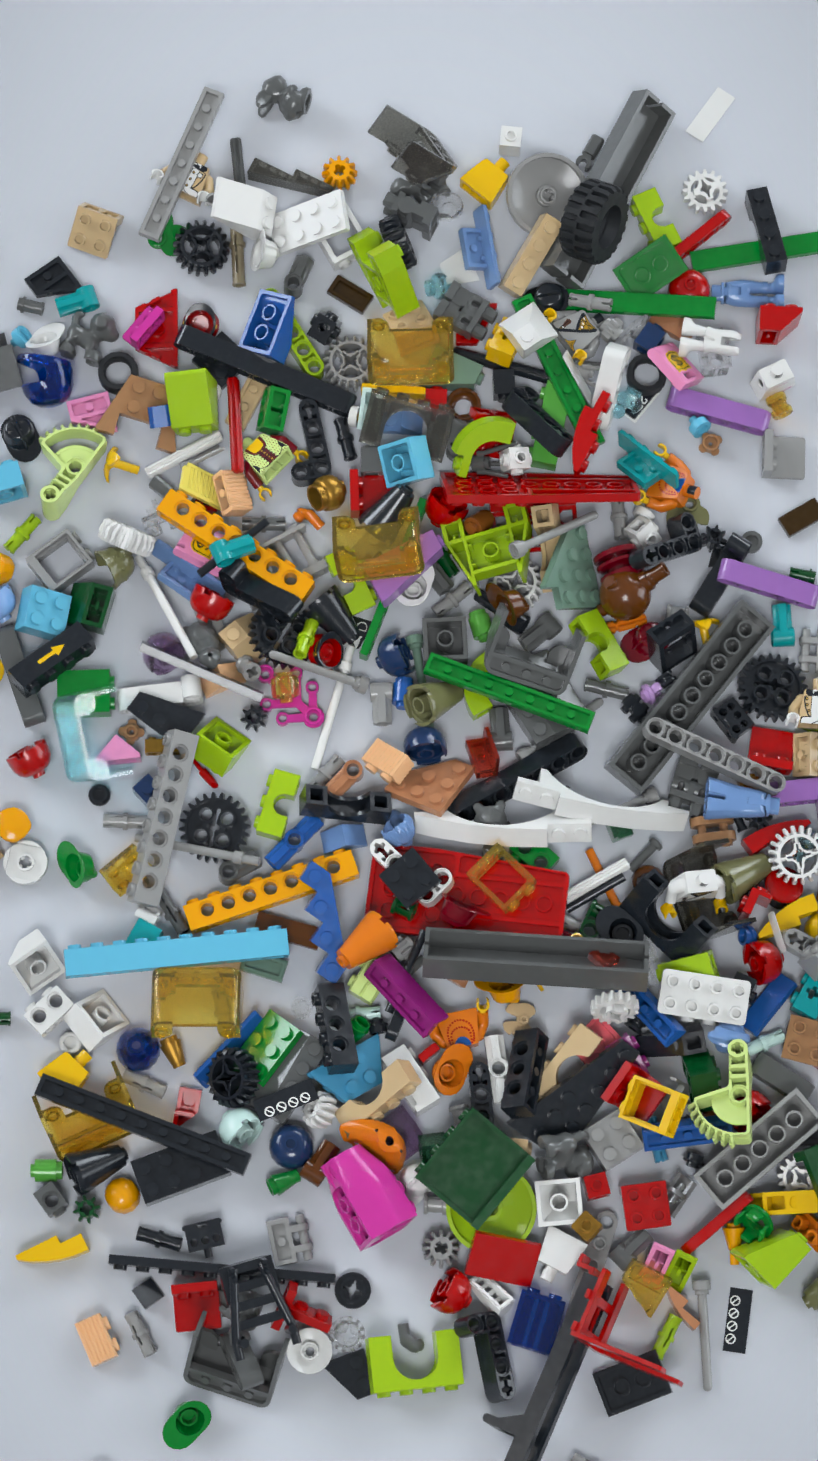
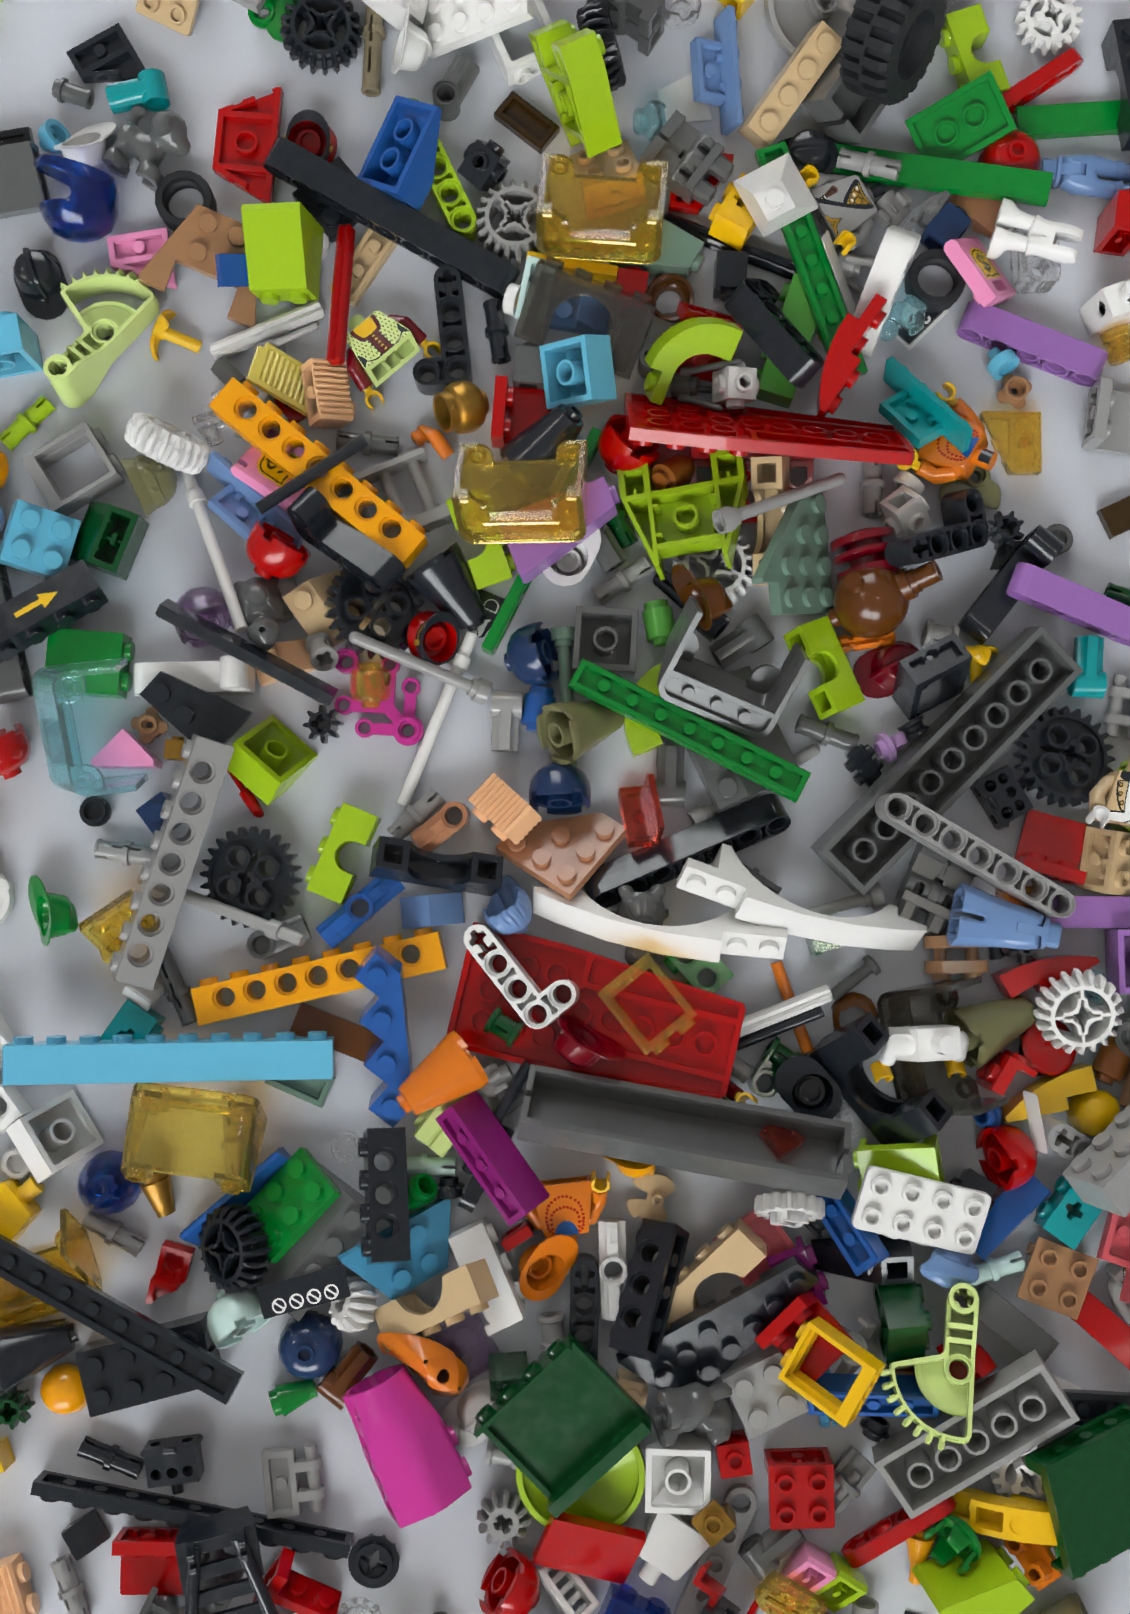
camera: 10 degrees right, 10 degrees up
(144, 327) = (226, 137): dark pink bracket -> none
(227, 552) = (298, 480): teal piece -> none
(273, 410) = (398, 278): green brick -> none
(305, 639) = (405, 619): lime pin -> none
(410, 878) = (515, 991): black plate -> none
(715, 476) = (1016, 439): none -> clear yellow wing

